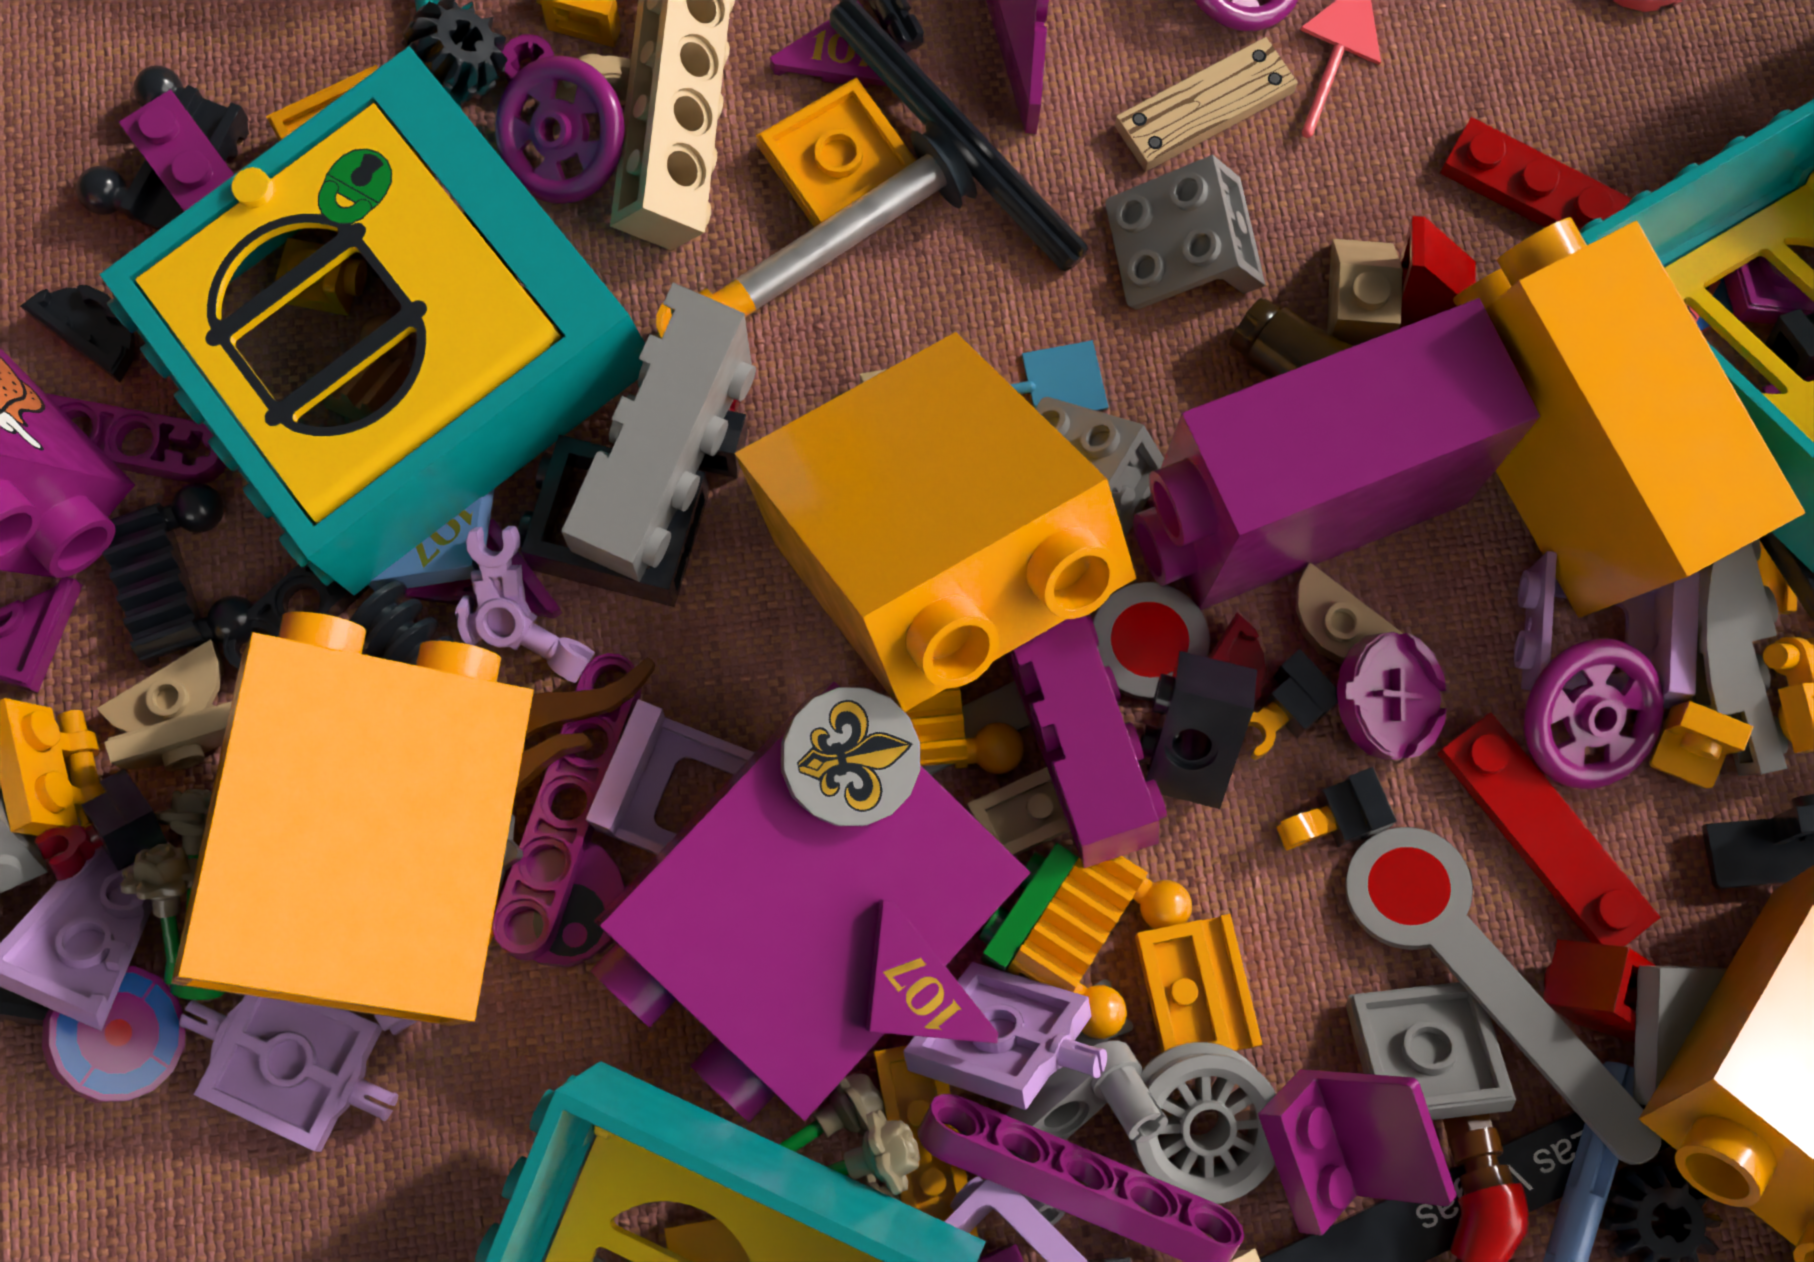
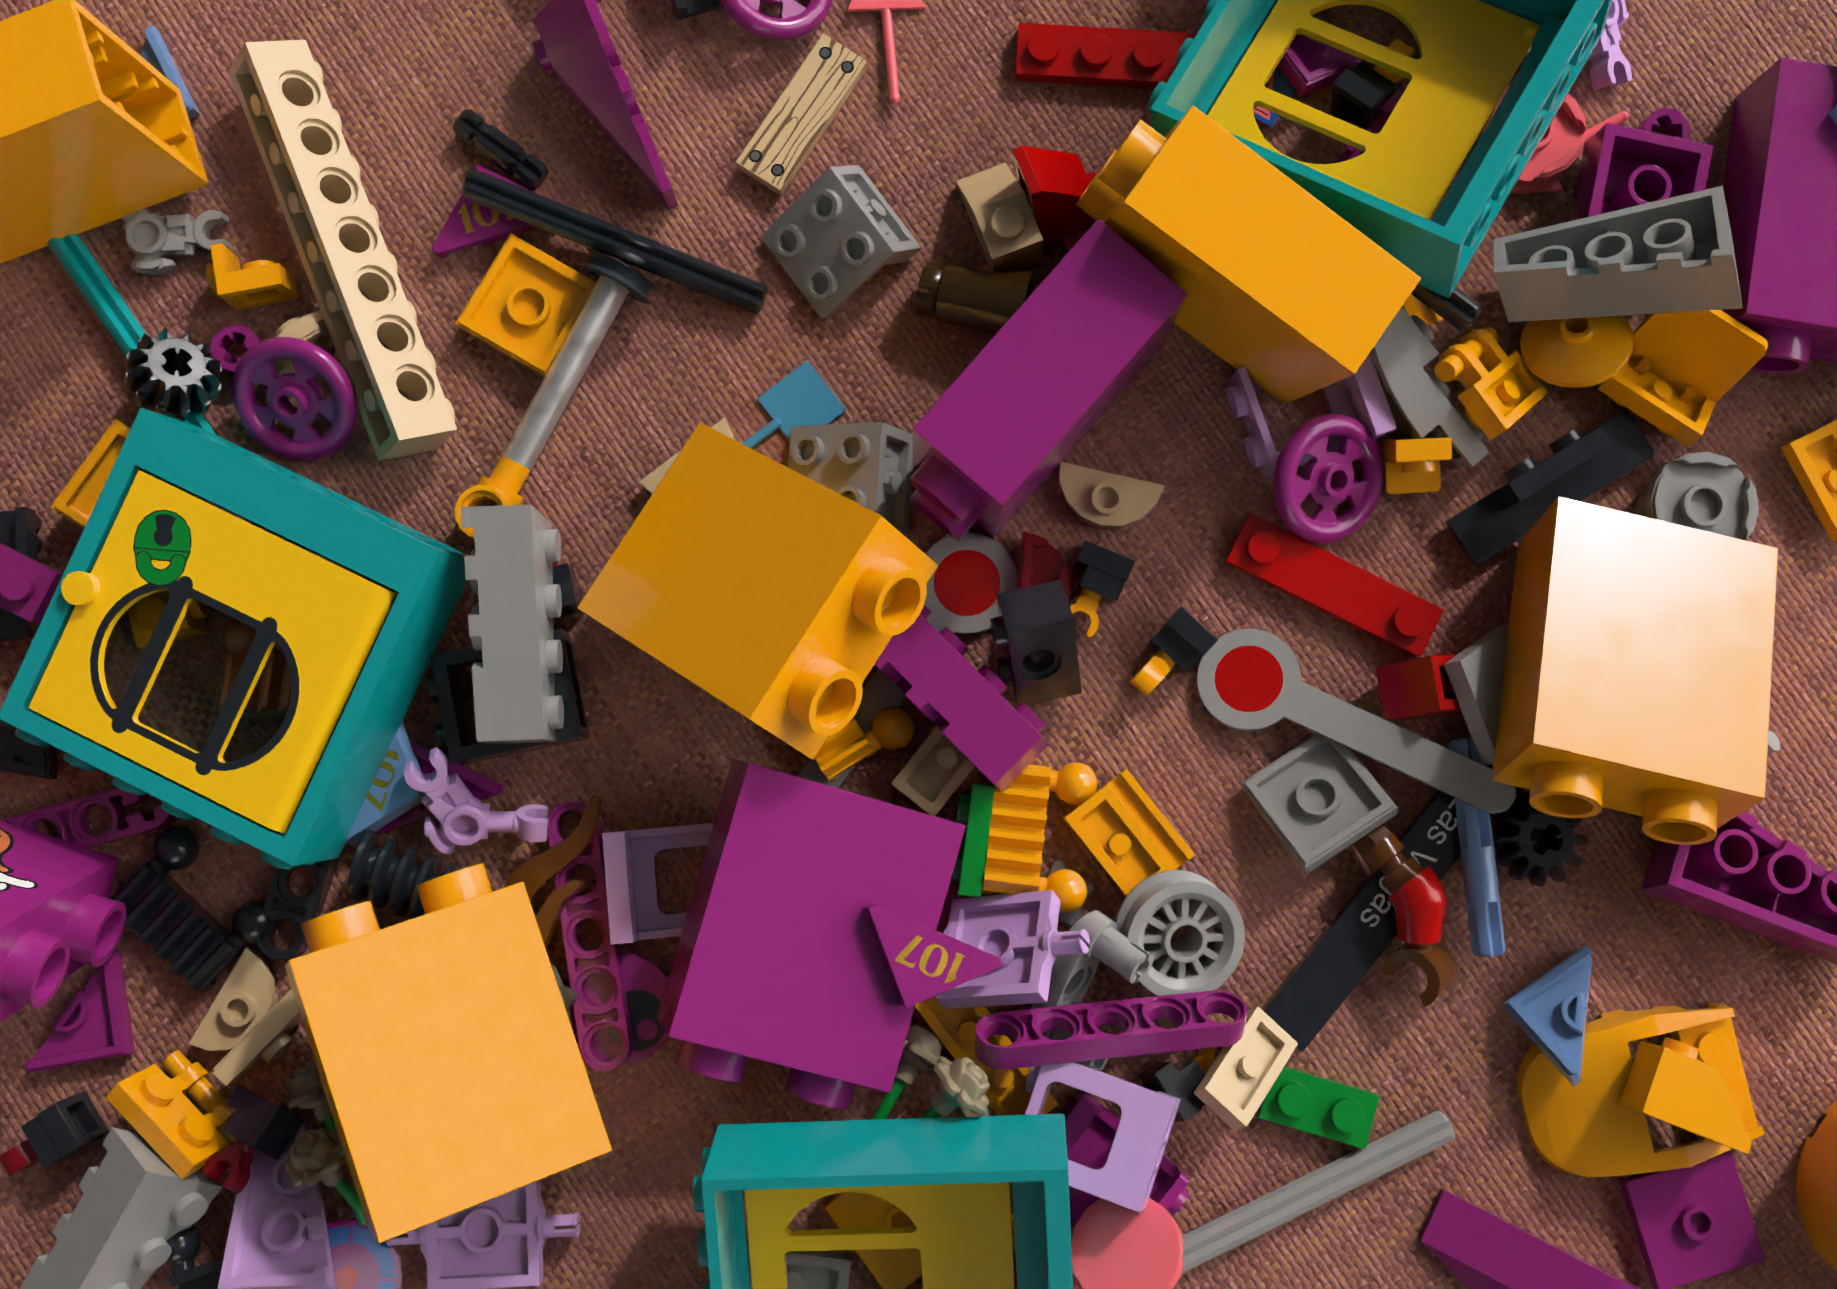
camera: 25 degrees left, 10 degrees up
(850, 756) = (790, 815): tile -> none
(1351, 1139) = (1286, 894): magenta bracket -> none
(1391, 695) = (1170, 539): magenta tile -> none

